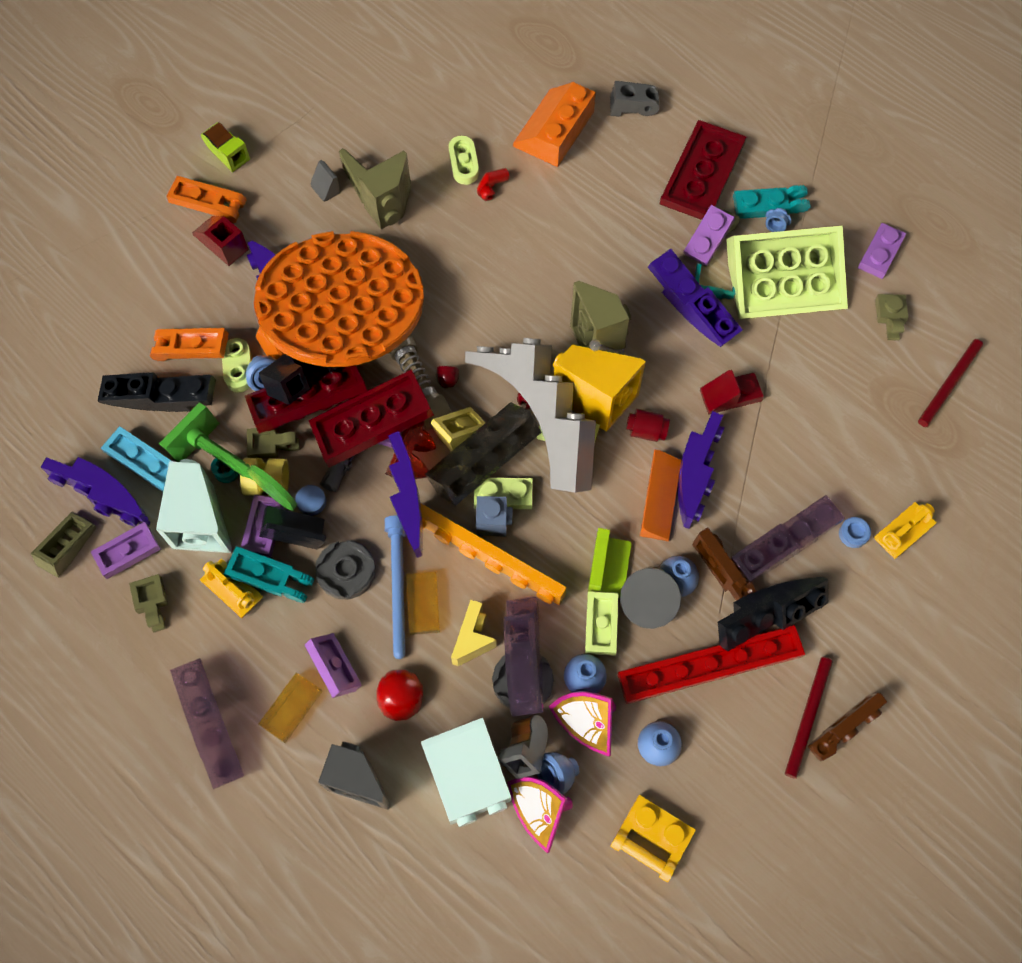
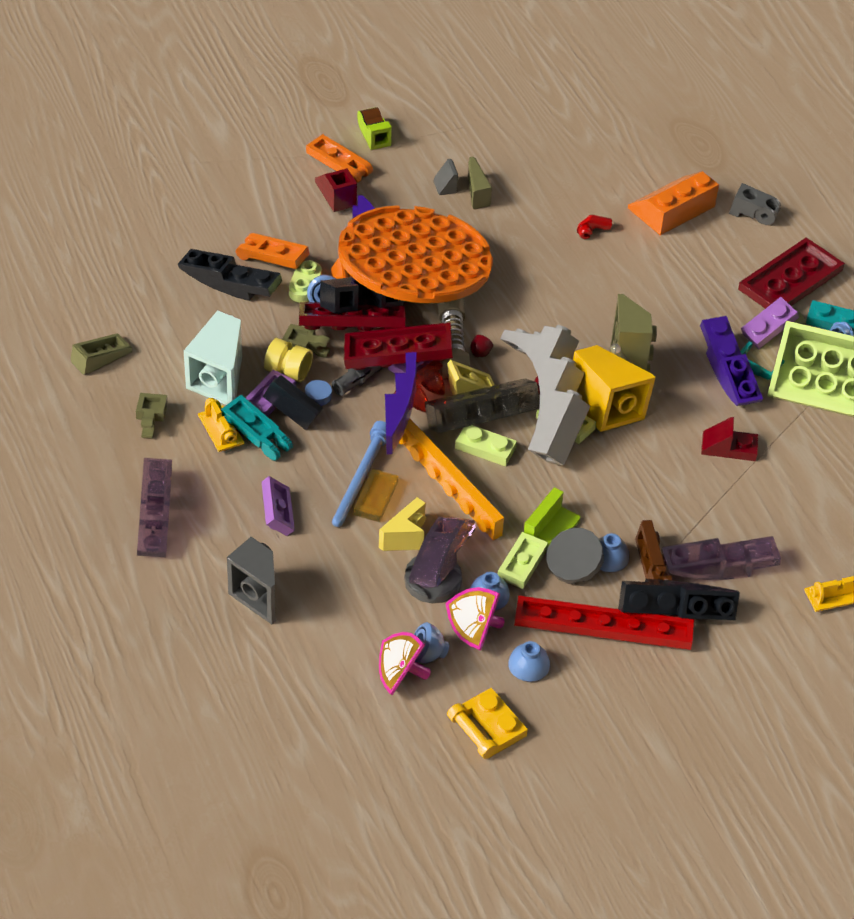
camera: 20 degrees right, 20 degrees down
(100, 488) = (150, 321): dark purple slope -> none
(125, 550) = (148, 372): medium lavender plate -> none
(137, 457) = (187, 310): medium azure plate -> none
(193, 433) = (250, 311): bright green piece -> none
(226, 477) = (255, 341): teal bush -> none
(290, 707) = (227, 524): clear yellow tile -> none
(345, 569) = (322, 450): dark grey tile -> none
(386, 189) = (497, 196): olive slope -> none
(399, 694) = (322, 548): red hair -> none
(463, 162) = (576, 201): yellowish green plate -> none
(467, 772) = (351, 609): light aqua slope -> none
(493, 516) = (467, 451): sand blue brick -> none
(525, 747) = (409, 612): dark grey leg -> none
(648, 425) = (639, 438): dark red brick -> none
(660, 496) = (623, 492): orange slope -> none
(695, 471) = (665, 480): dark purple slope -> none
(808, 718) = (672, 693): dark red bar -> none
(845, 726) = (703, 705): reddish brown hinge -> none
(854, 532) = (788, 580): medium blue tile -> none

